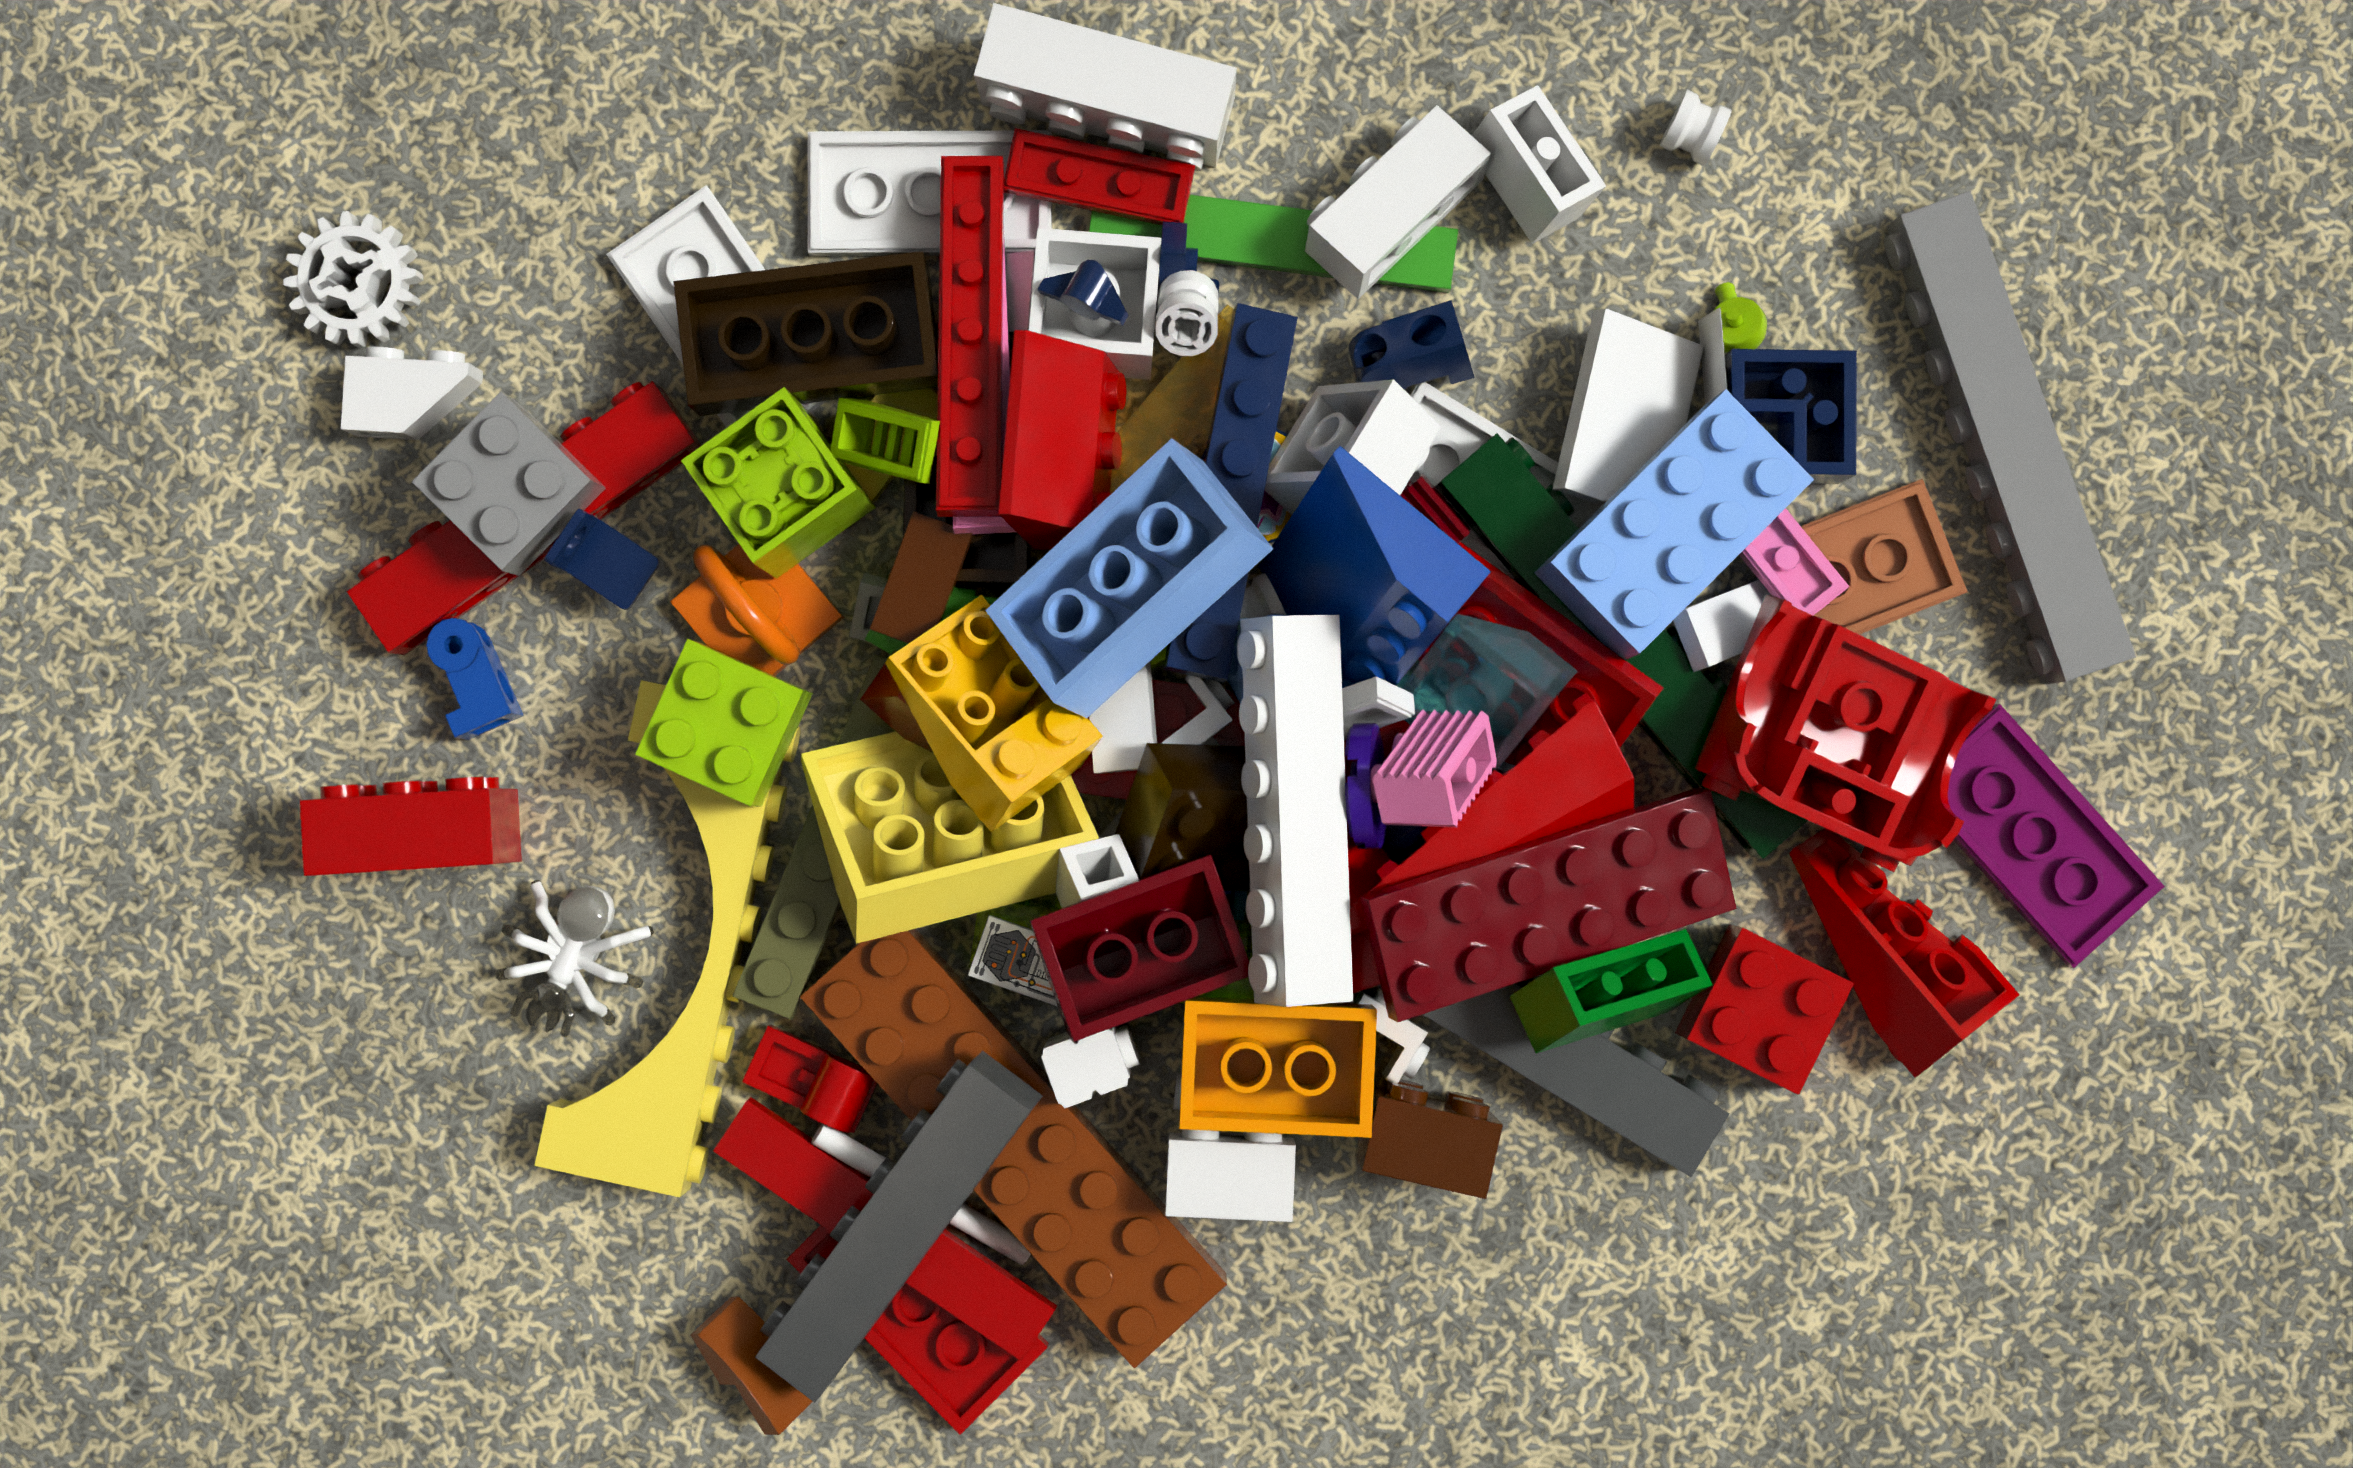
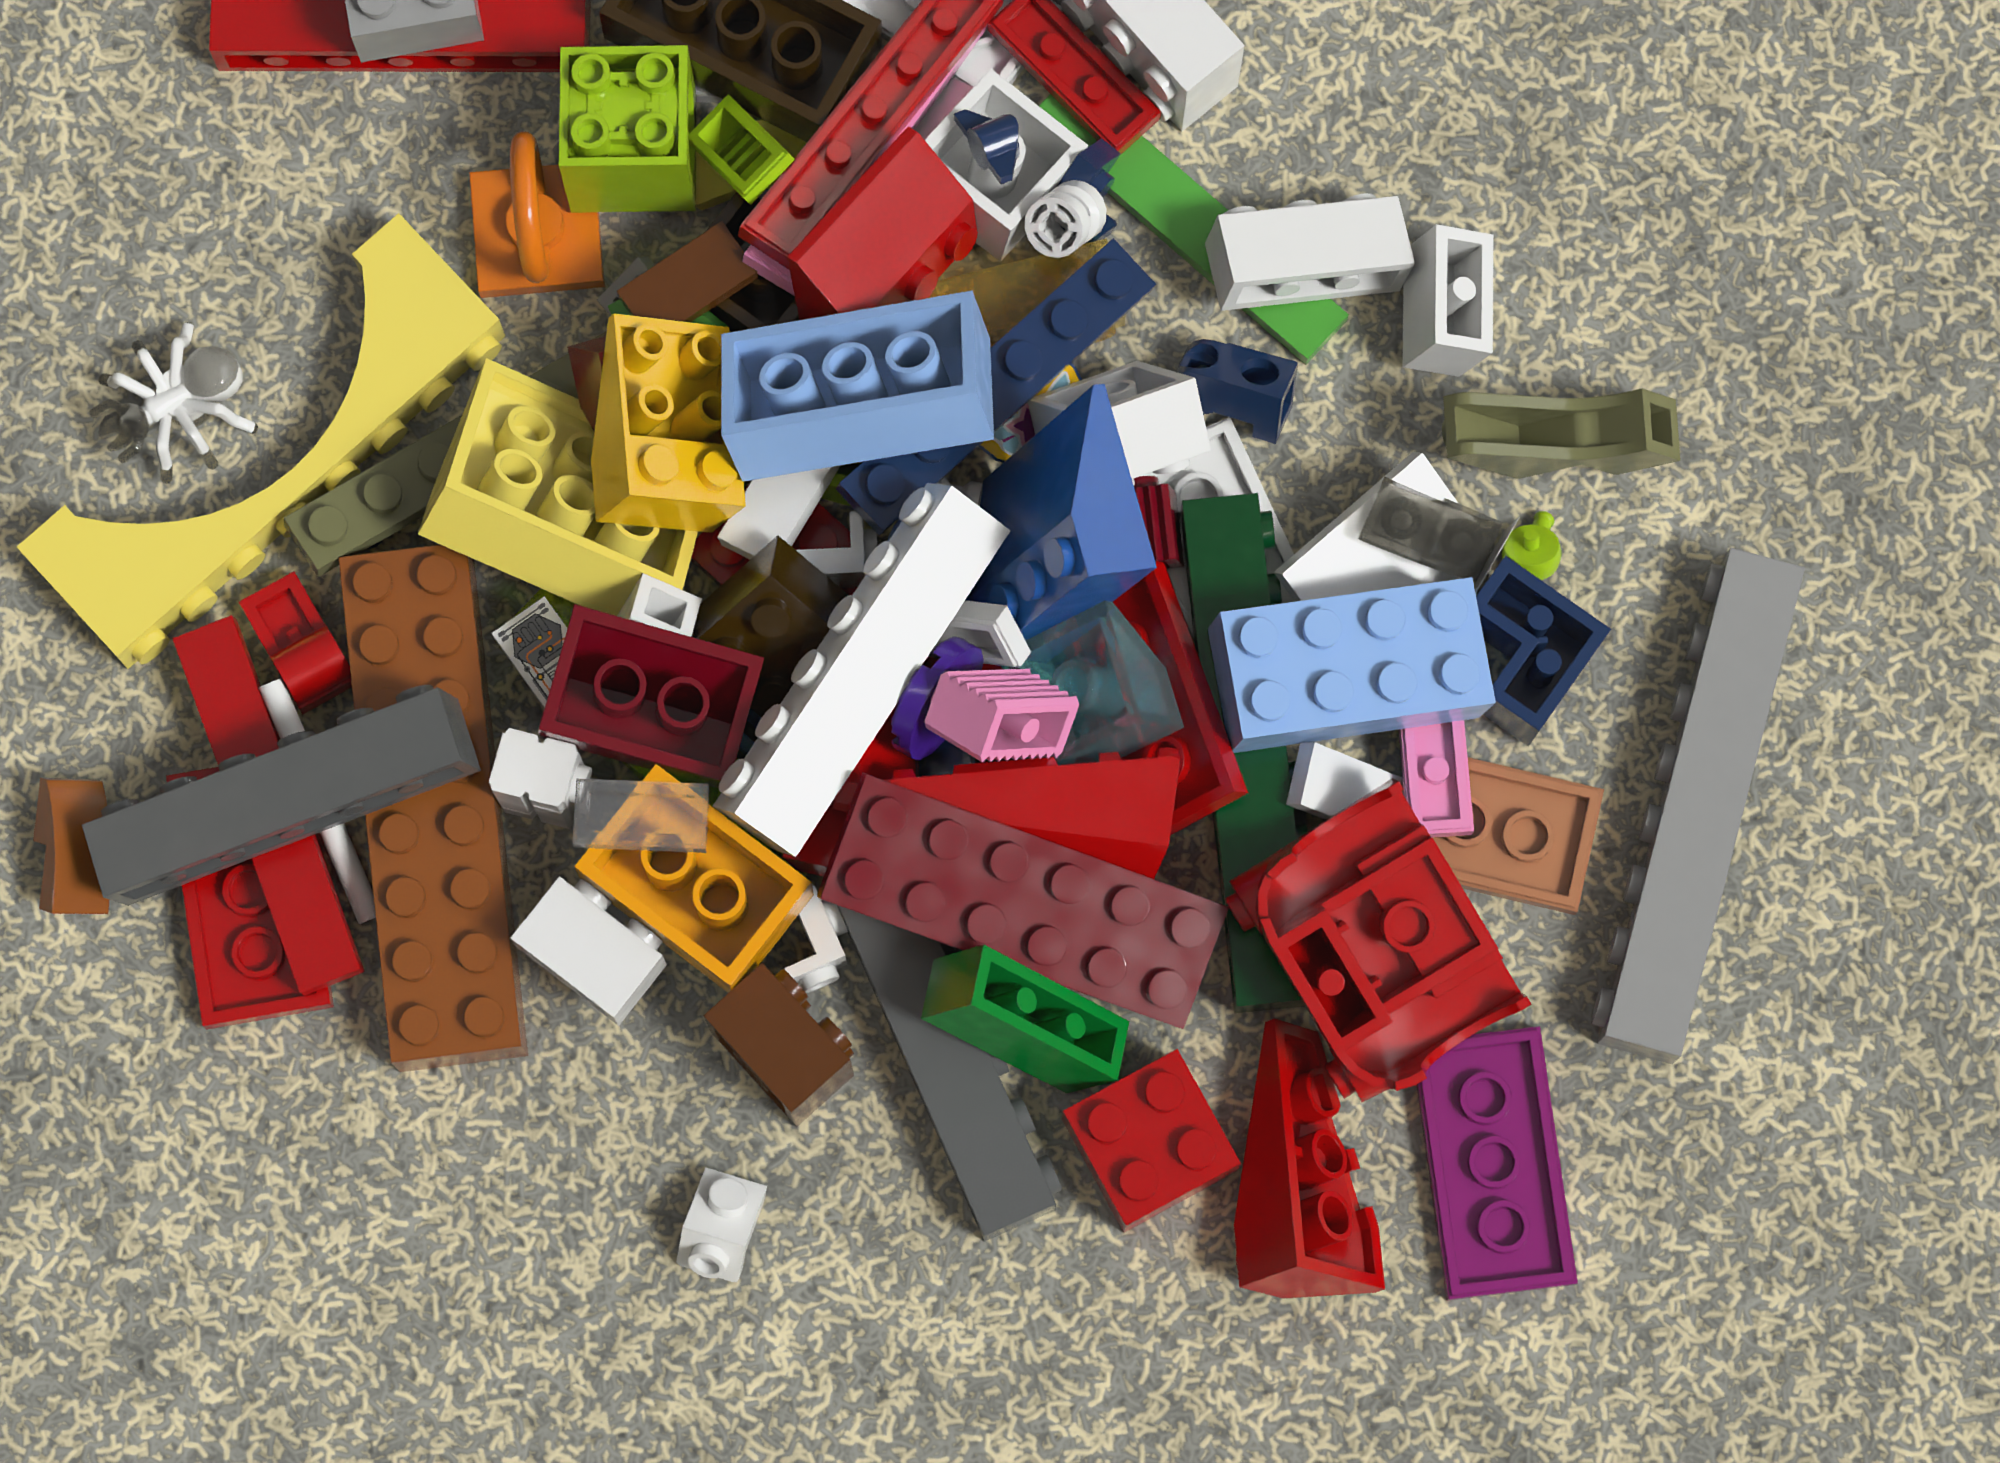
camera: 25 degrees right, 10 degrees down
(410, 826) = (122, 203): red brick -> none
(475, 677) = (264, 124): blue leg -> none
(603, 559) = (438, 91): dark blue bracket -> none
(723, 723) = (441, 287): lime brick -> none
(1205, 1053) = (641, 815): none -> clear tile
(1473, 1302) = (720, 1225): none -> white bracket
(1656, 370) = (1429, 530): none -> clear smoke slope
(1695, 127) = (1609, 363): white wheel -> none
(1701, 211) = (1547, 434): none -> olive arch

